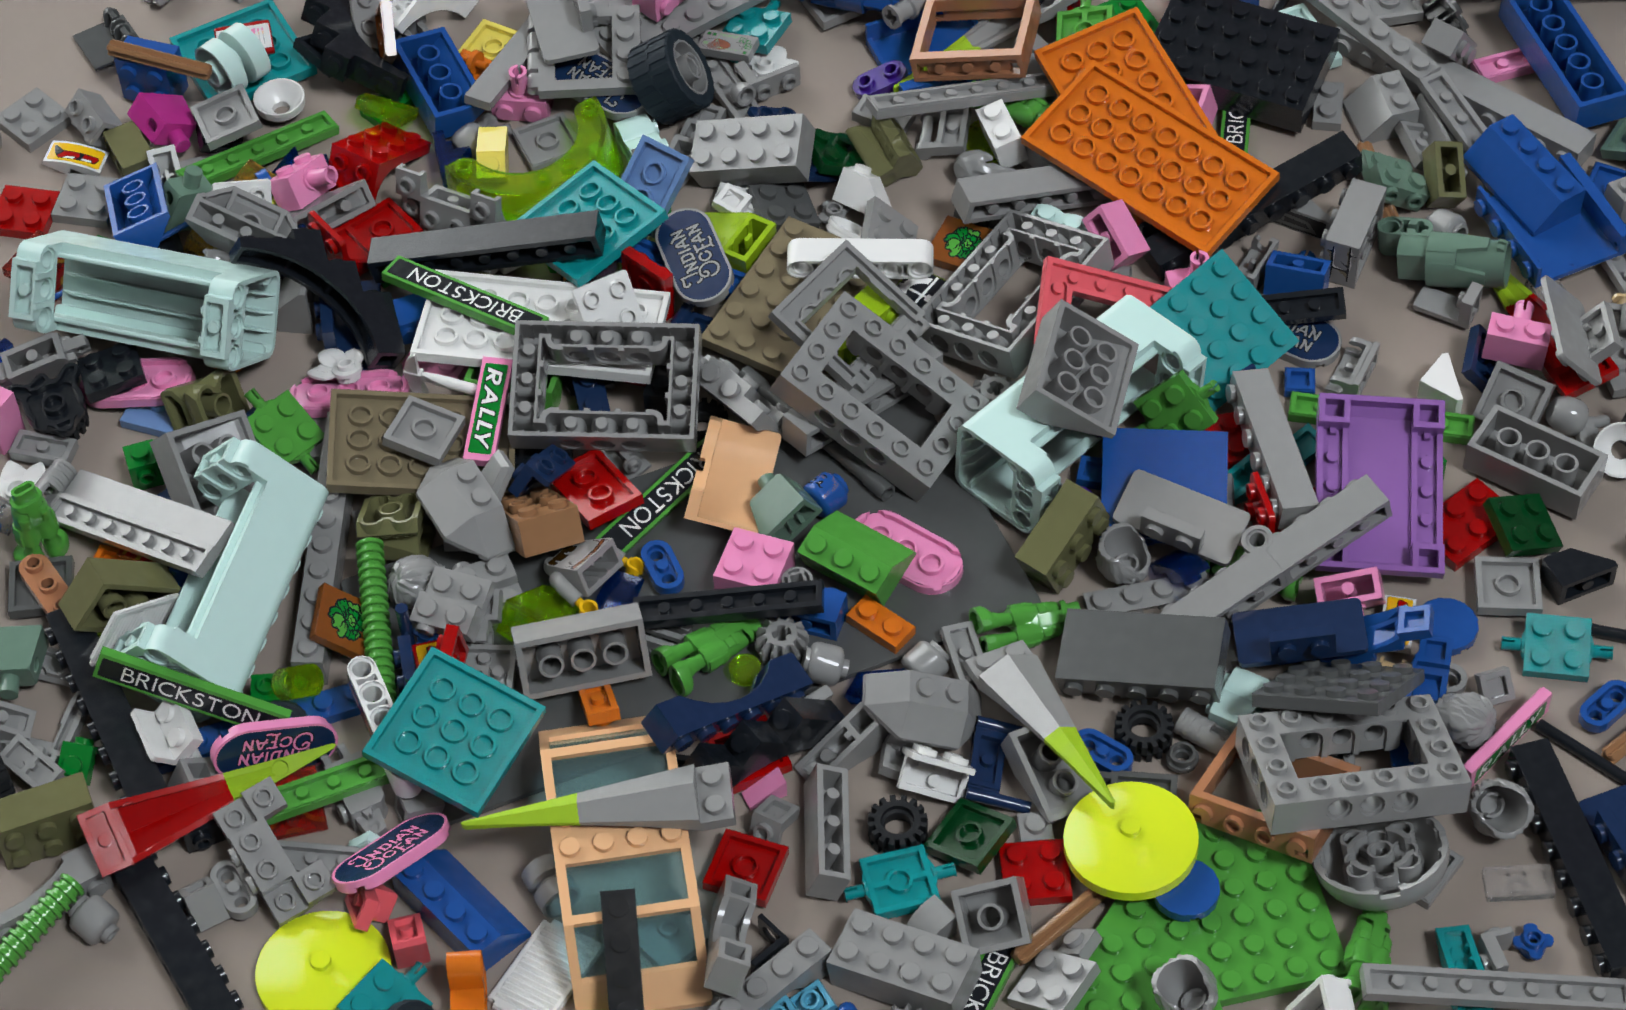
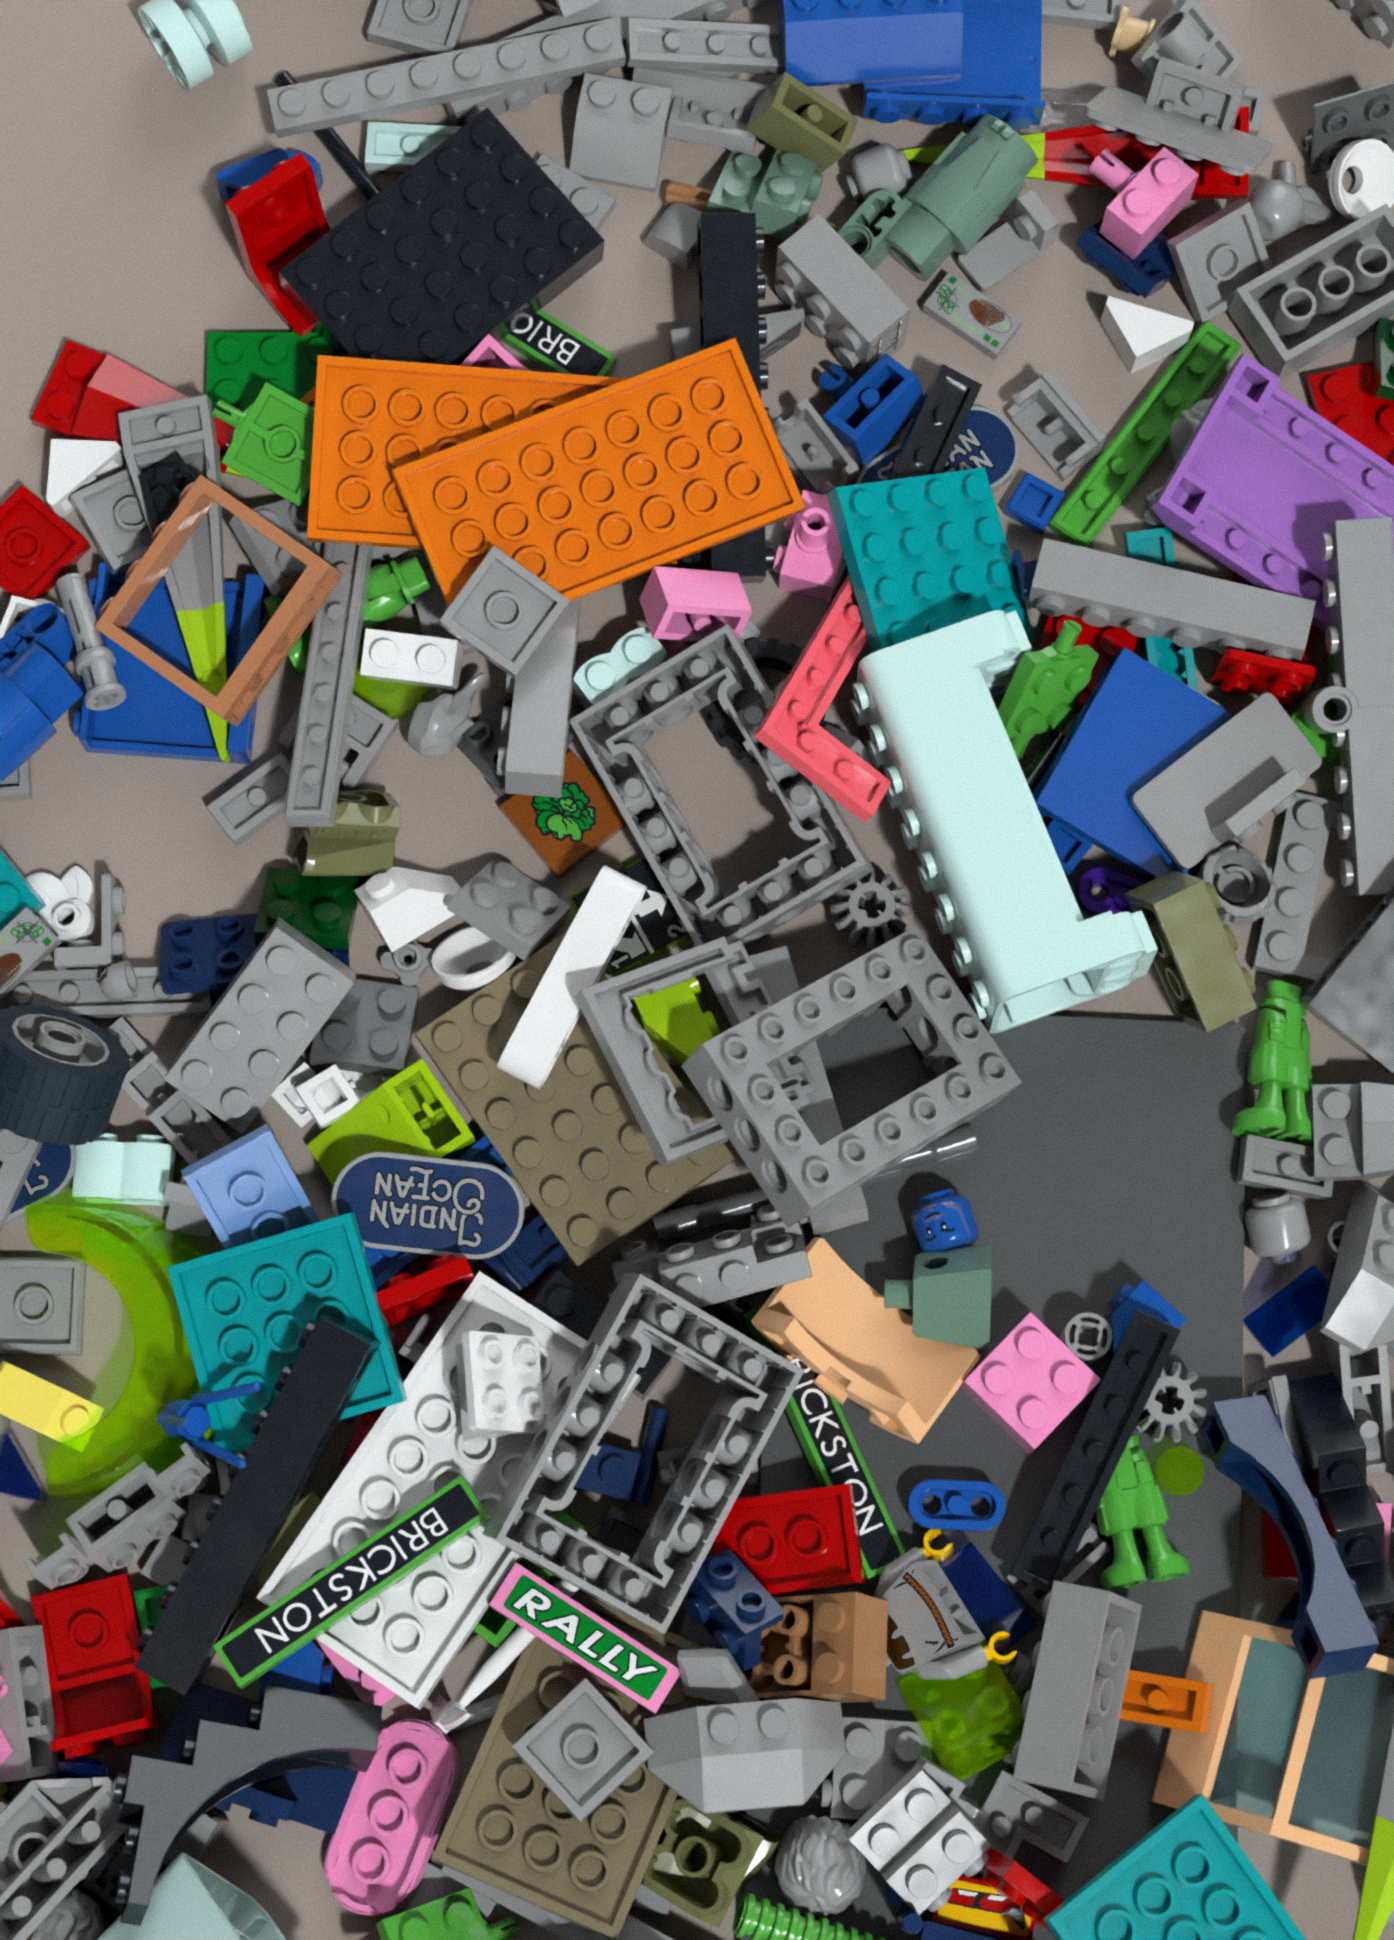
camera: 70 degrees left, 25 degrees up
(336, 364) = (330, 1814): white plate -> none
(517, 201) = (191, 1420): none -> blue plant
(825, 663) = (1230, 1363): light grey head -> none
(856, 556) = (1077, 1234): bright green slope -> none
(880, 79) = (189, 770): dark purple plate -> none
(880, 624) = (1187, 1253): orange plate -> none
(937, 561) = (1080, 1162): bright pink tile -> none
(1046, 140) = (504, 611): none -> light grey plate
(1077, 373) = (1003, 801): light grey slope -> none
(1180, 567) = (1297, 825): clear blue slope -> none
(1394, 308) = (971, 315): none -> light grey tile

